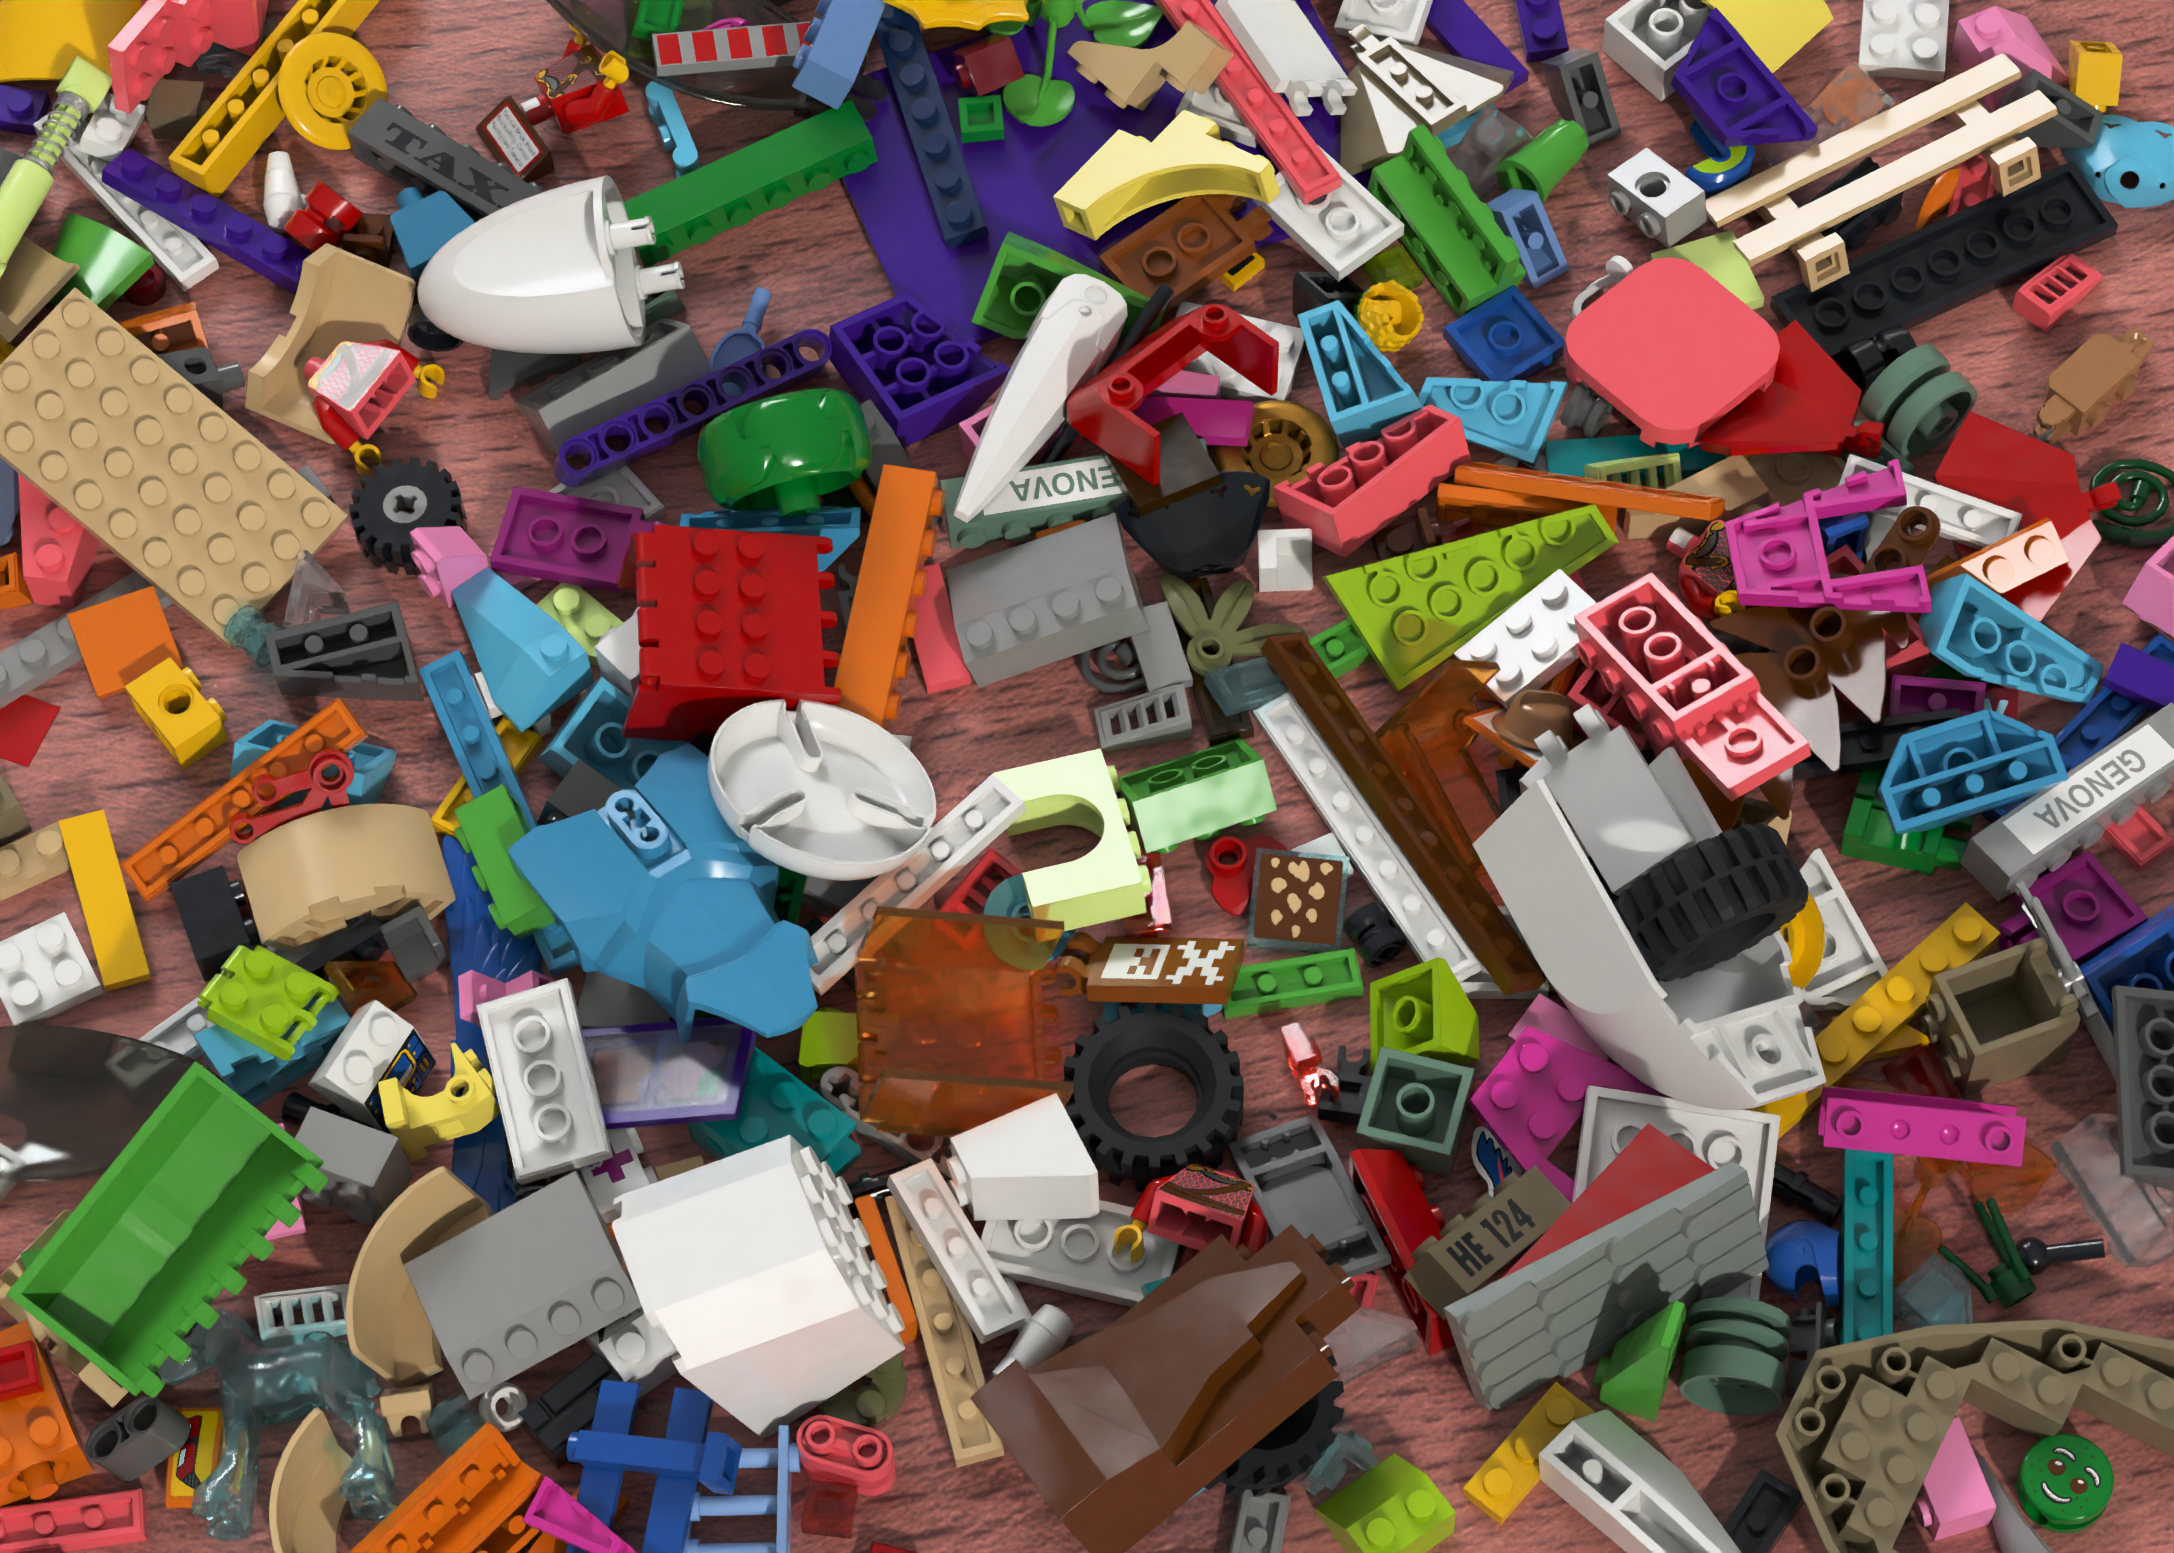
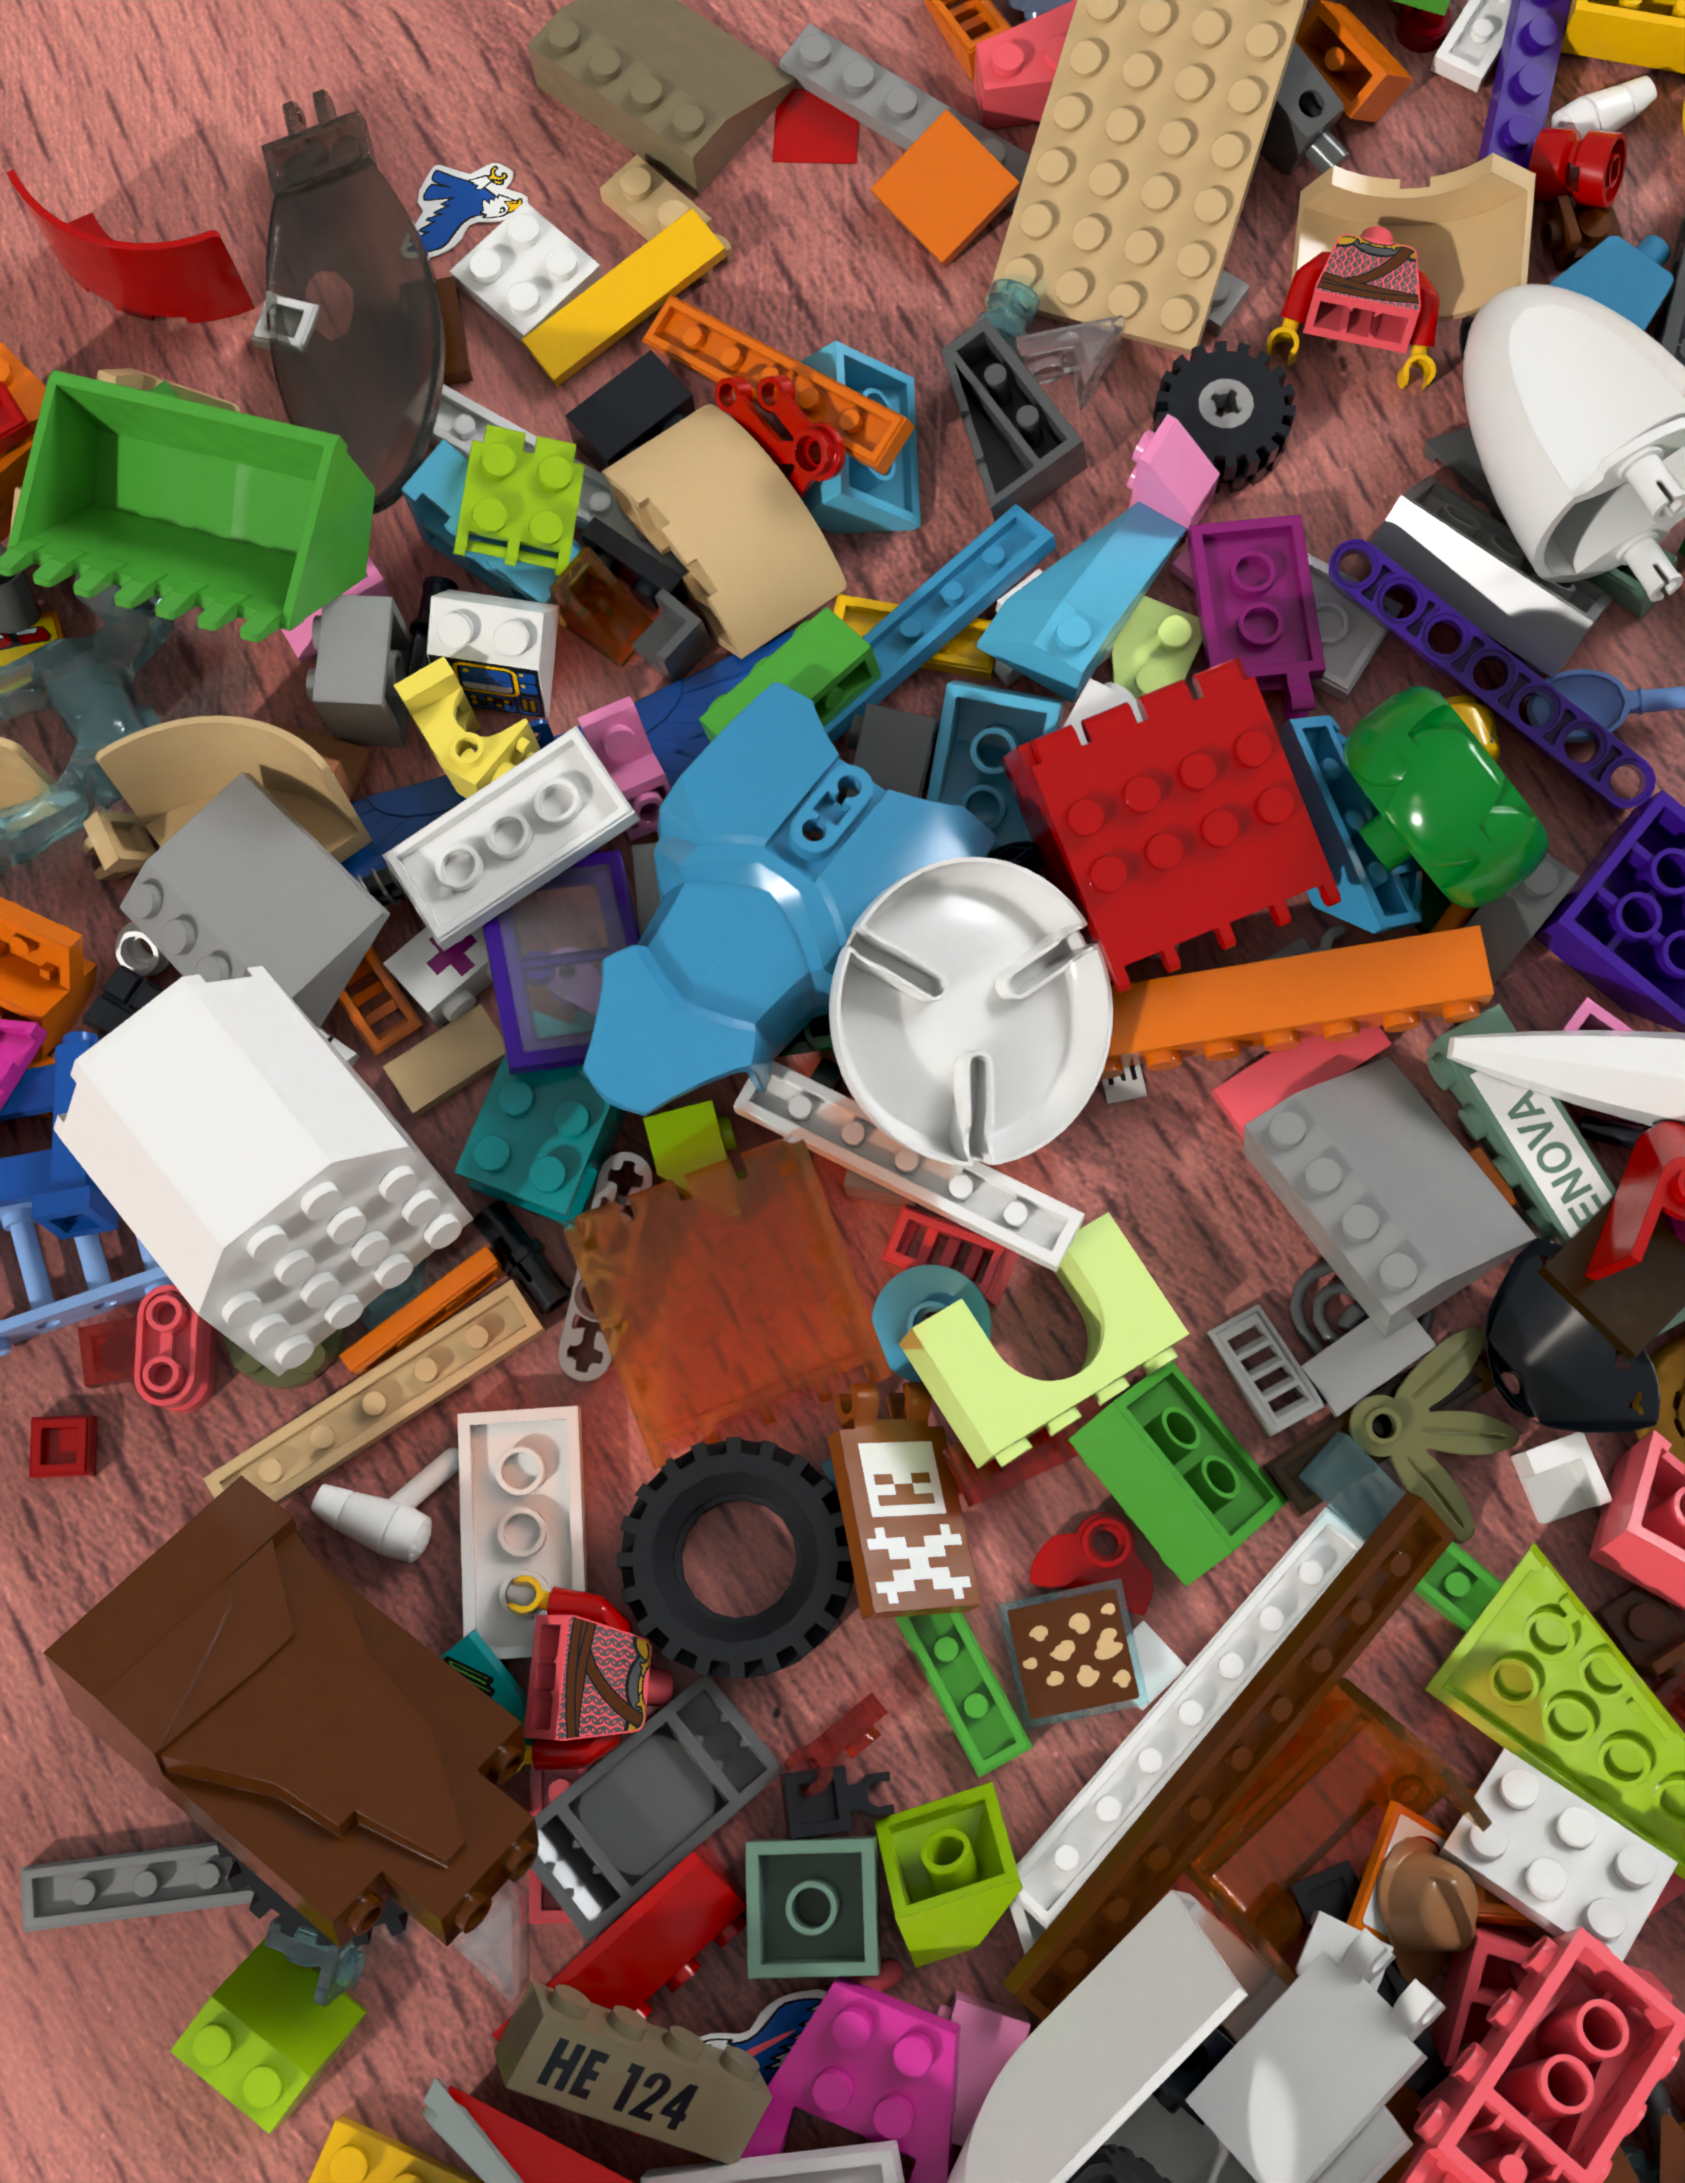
camera: 75 degrees right, 15 degrees up
(186, 734) = (886, 249): yellow brick -> none
(288, 1301) = (184, 667): white slope -> none
(453, 1423) = (99, 917): clear light blue bracket -> none
(956, 1250) = (453, 1389): white plate -> none
(1025, 1167) = (566, 1438): white slope -> none
(1374, 934) = (1048, 1783): black wheel -> none

